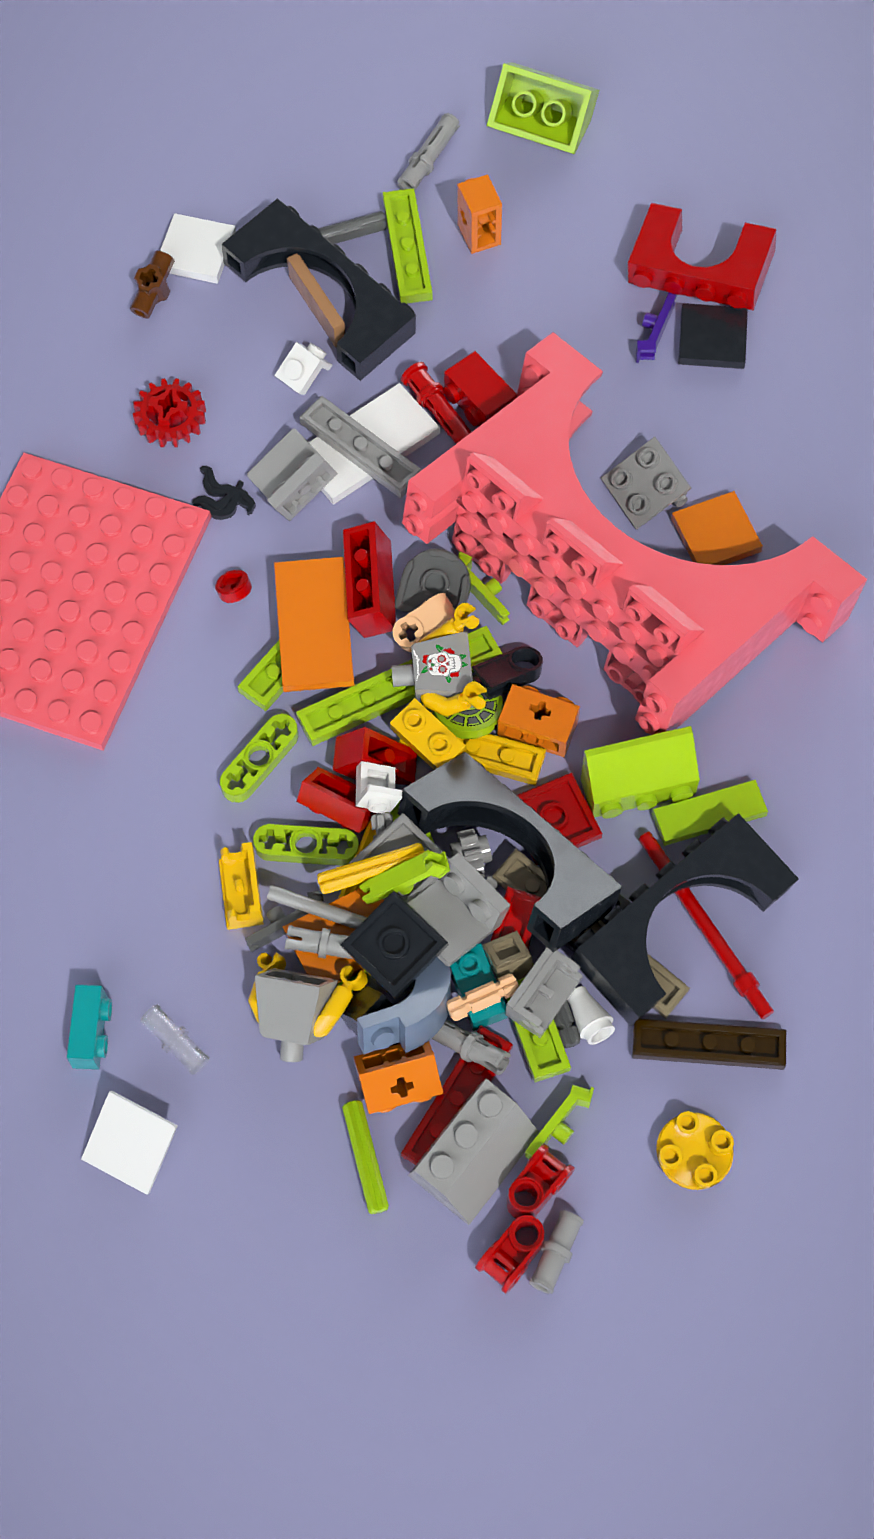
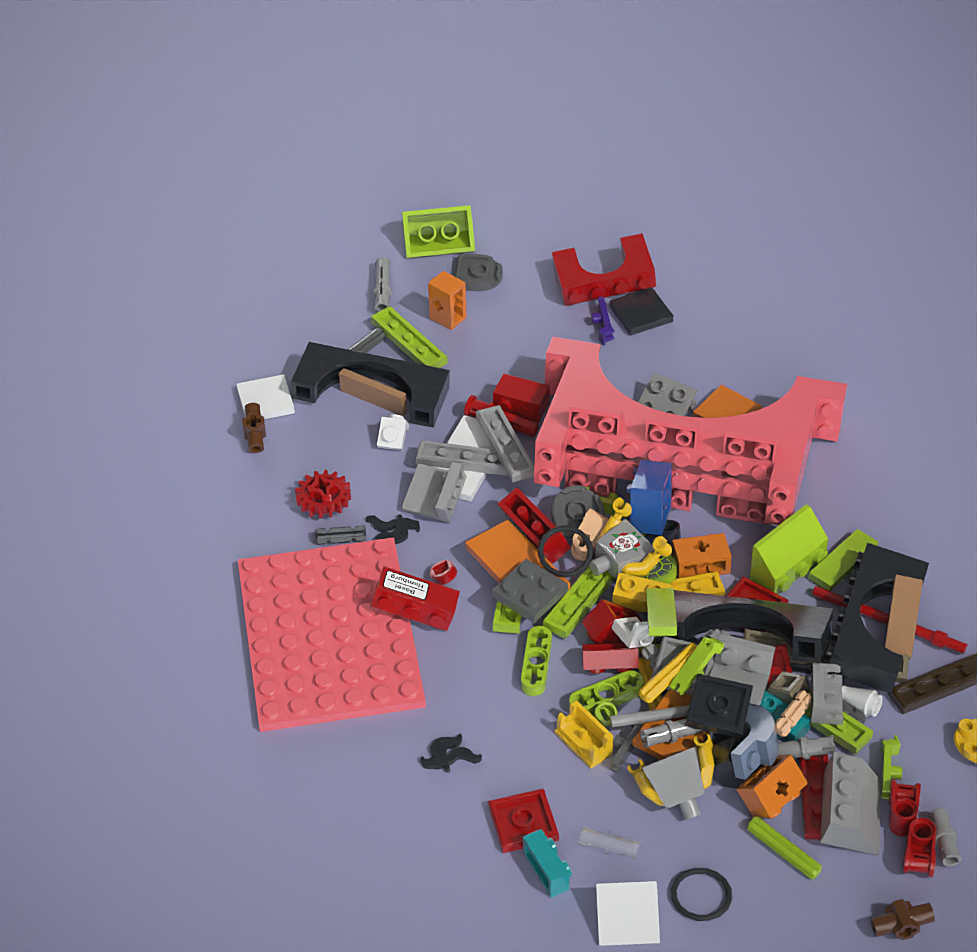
camera: 30 degrees left, 20 degrees down
(77, 817) = (441, 760): none -> black piece
(106, 955) = (522, 815): none -> red tile
(156, 476) = (340, 534): none -> axle
(167, 609) = (415, 598): none -> red brick
(254, 1188) = (719, 877): none -> black piece
(275, 872) = (608, 710): none -> lime hinge
(298, 668) = (530, 590): none -> dark grey plate
(395, 656) = (560, 573): none -> black piece
(411, 444) = (505, 443): none -> light grey tile
(412, 784) = (661, 612): none -> lime tile
(428, 1329) = (902, 919): none -> reddish brown axle
(518, 615) = (651, 496): none -> blue container
(553, 187) = (478, 271): none -> dark grey tile
(714, 934) = (903, 615): none -> medium nougat tile

